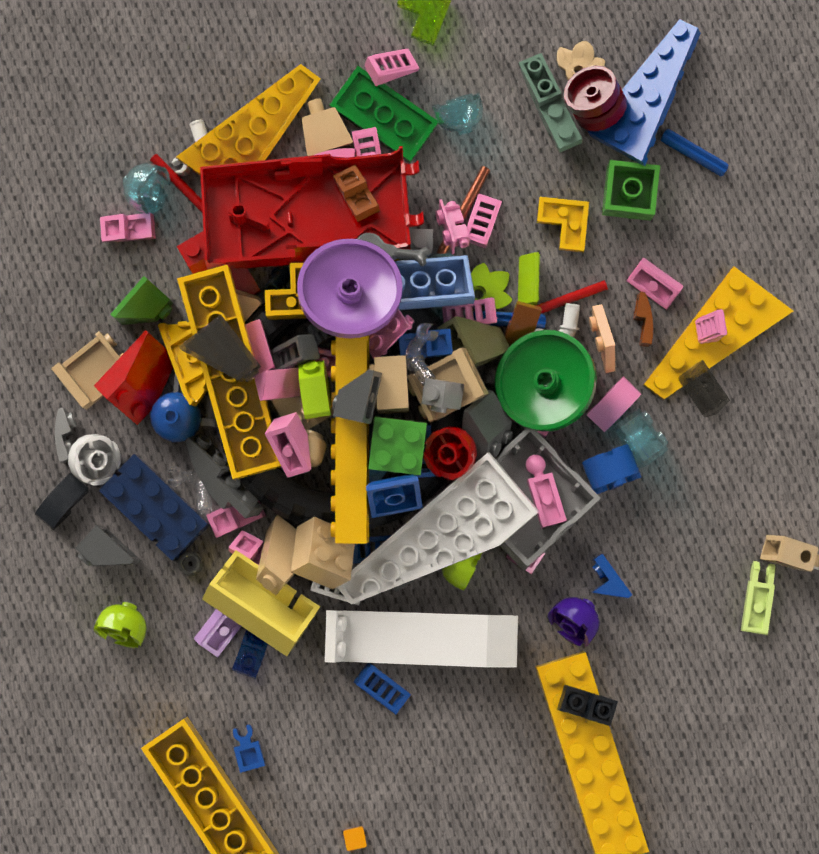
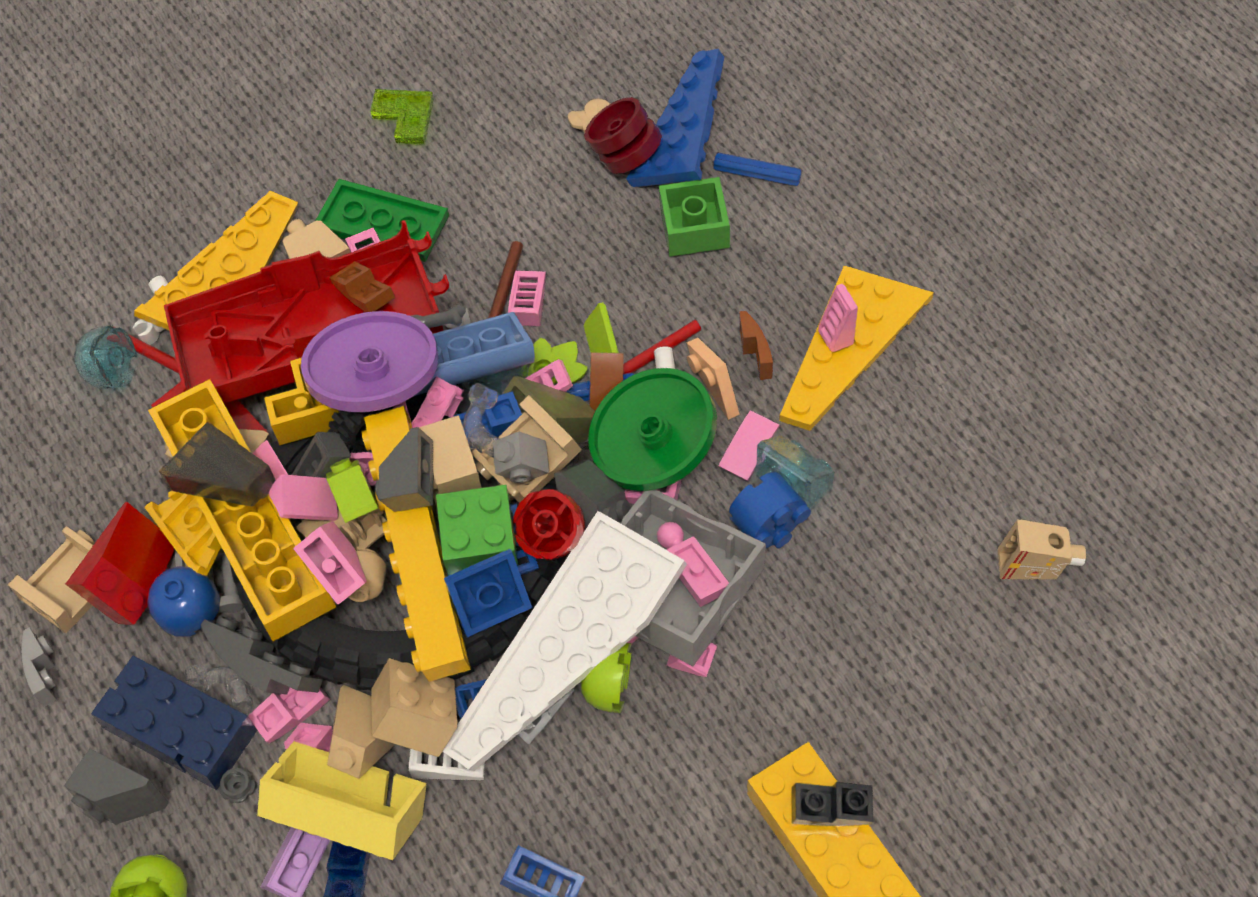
camera: 10 degrees left, 25 degrees down
(61, 501) = (41, 752): black slope -> none
(94, 459) = (79, 677): white cylinder -> none
(127, 228) = (83, 414): bright pink slope -> none
(143, 305) = (116, 478): bright green slope -> none
(382, 76) = (375, 169): bright pink slope -> none
(421, 638) = (577, 788): white panel -> none
(452, 234) = (488, 300): bright pink hinge -> none
(460, 113) = (469, 191): clear light blue cylinder -> none
(549, 103) = (571, 160): sand green slope -> none
(572, 218) = (629, 263): yellow plate -> none
(577, 620) = (781, 711): dark purple cylinder -> none
(613, 585) = (818, 655): blue slope -> none
(655, 283) = (766, 311): bright pink slope -> none
(704, 389) = (855, 401): clear smoke slope -> none
(758, 601) = (1018, 626): yellowish green hinge -> none

